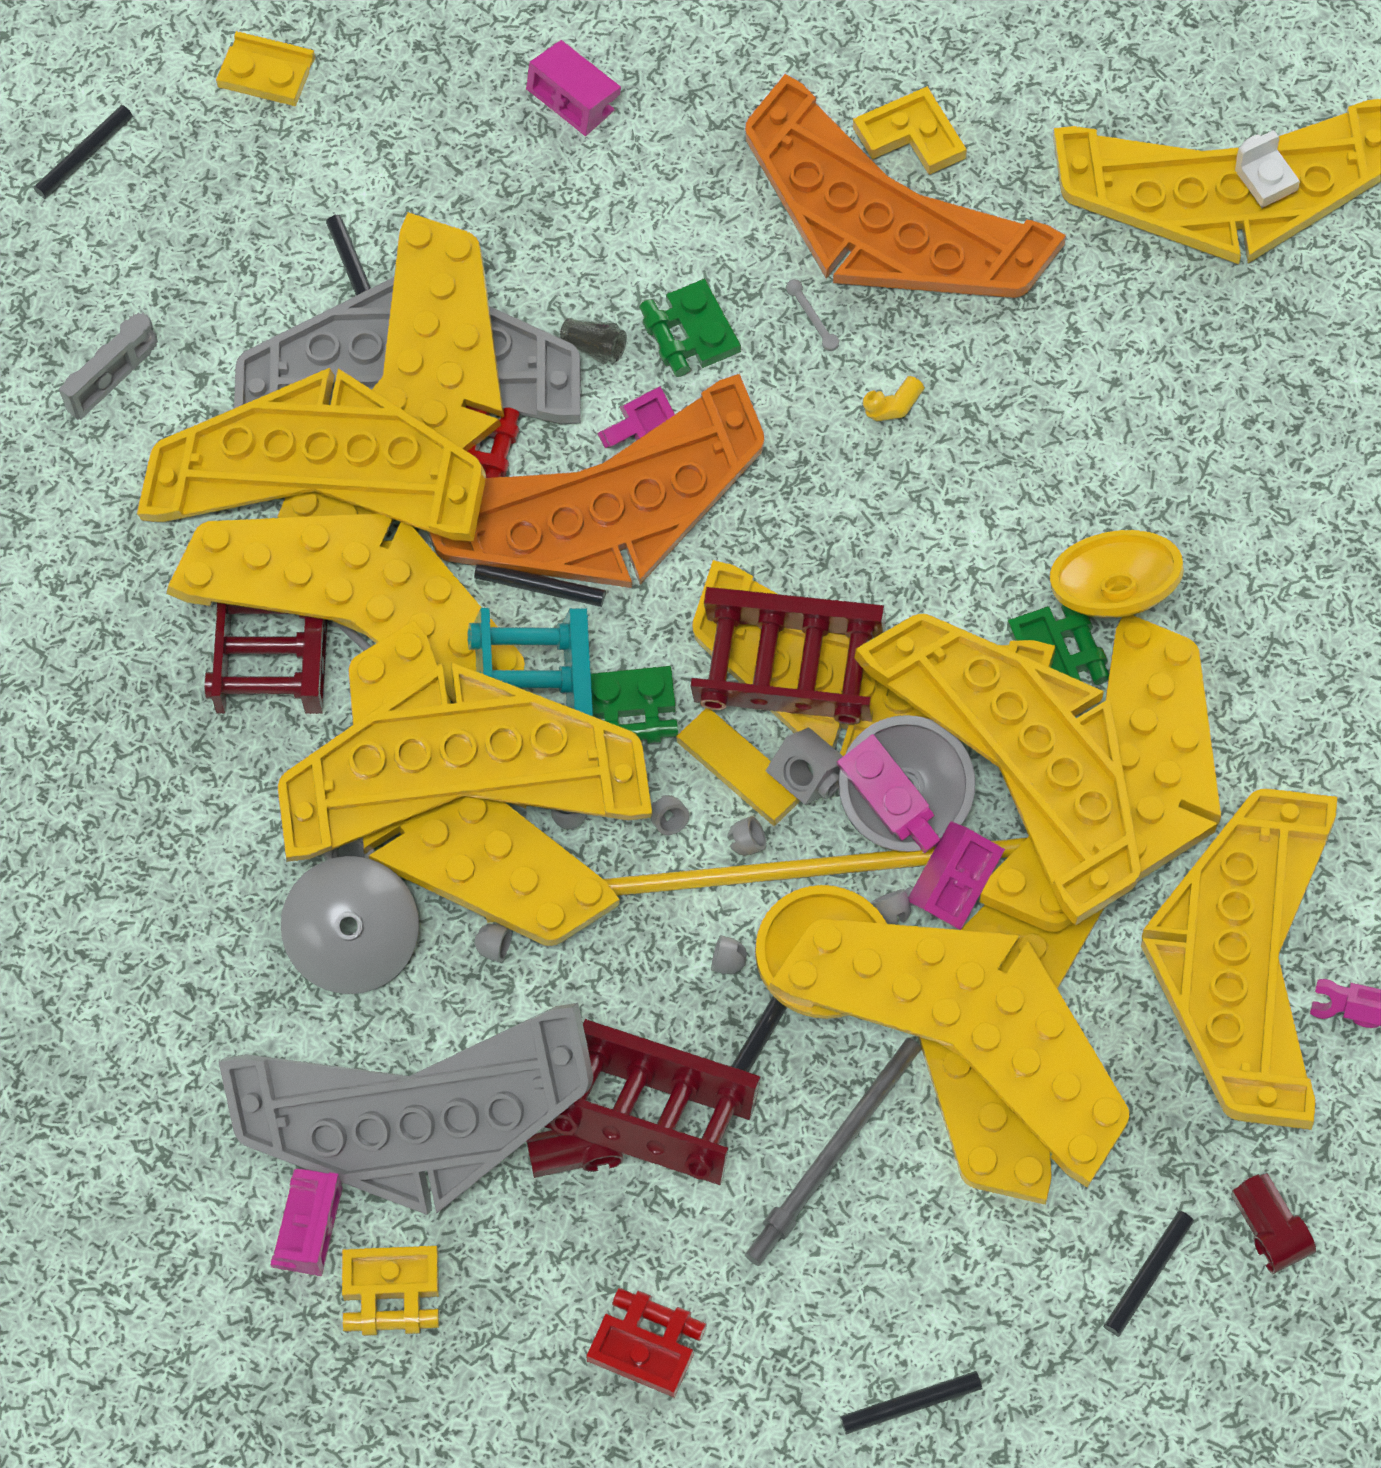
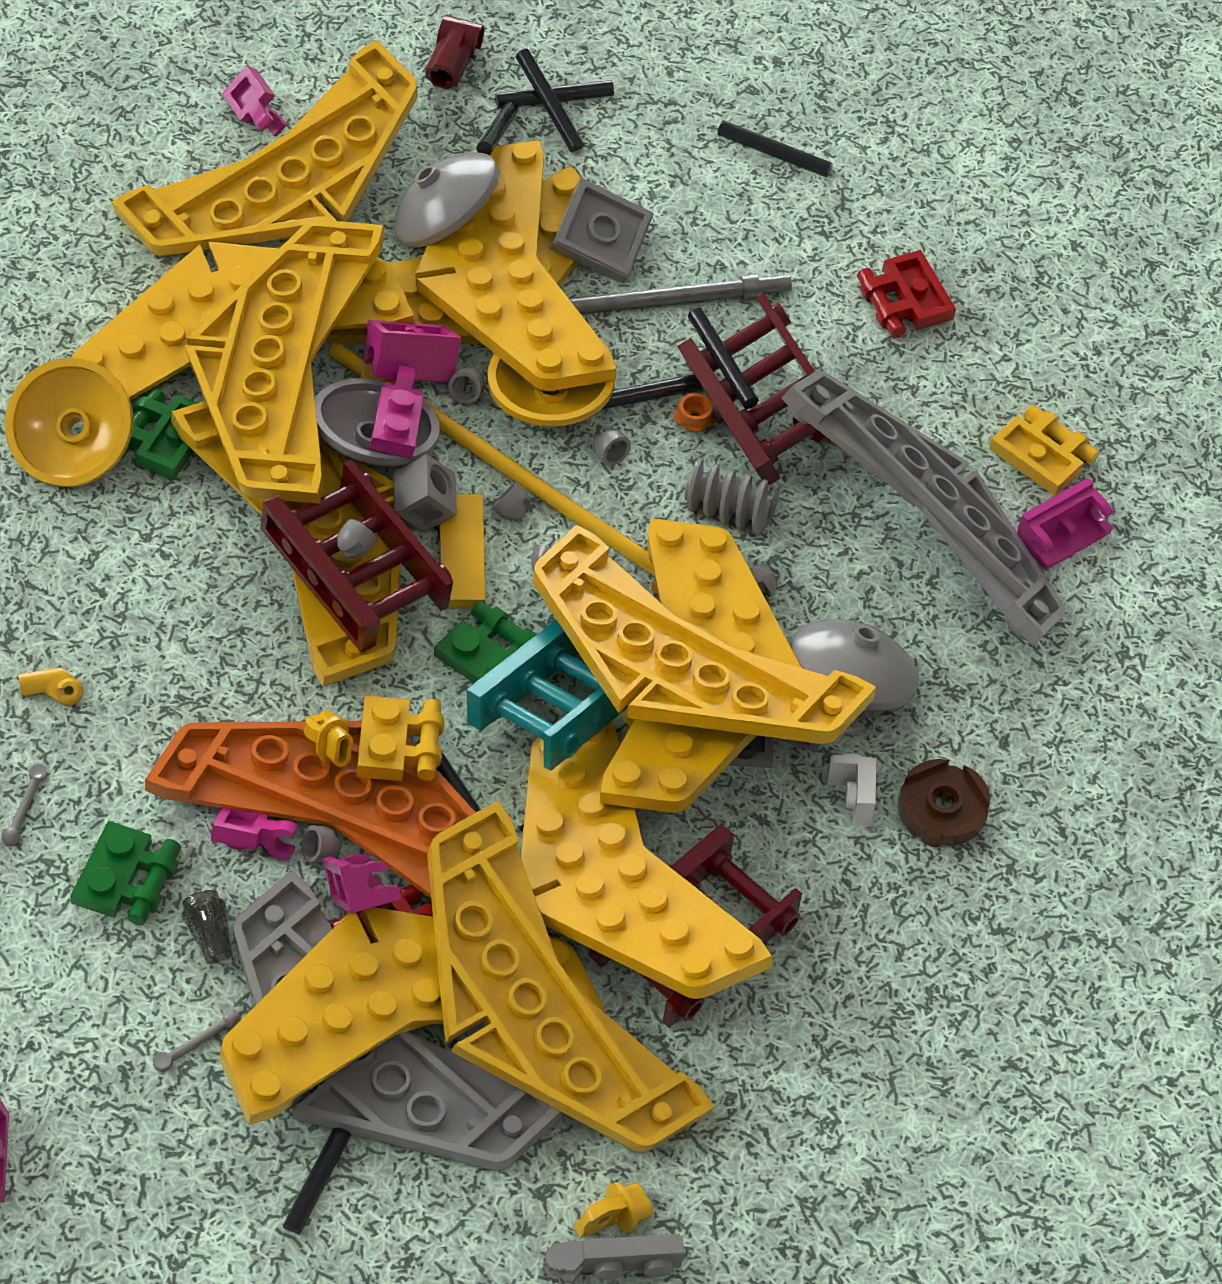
camera: 145 degrees left, 10 degrees down
(136, 409) = (620, 1206): none -> yellow piece
(174, 864) = (940, 825): none -> reddish brown plate
(254, 834) = (859, 777): none -> white bracket
(516, 430) = (355, 886): none -> dark pink hinge
(527, 244) = (163, 1061): none -> light grey hinge
(585, 455) = (322, 840): none -> light grey hinge
(589, 985) = (730, 497): none -> light grey piece
(620, 553) = (384, 735): none -> yellow plate
(656, 512) = (330, 736): none -> yellow piece
(699, 1041) = (697, 404): none -> orange plate
(709, 1090) = (723, 358): none -> black bar
(789, 642) = (355, 539): none -> light grey hinge
(945, 1147) = (602, 231): none -> light grey tile
(1085, 1034) = (445, 198): none -> light grey dish
(1134, 1158) = (497, 128): none -> black bar
(1137, 1248) = (549, 100): none -> black bar

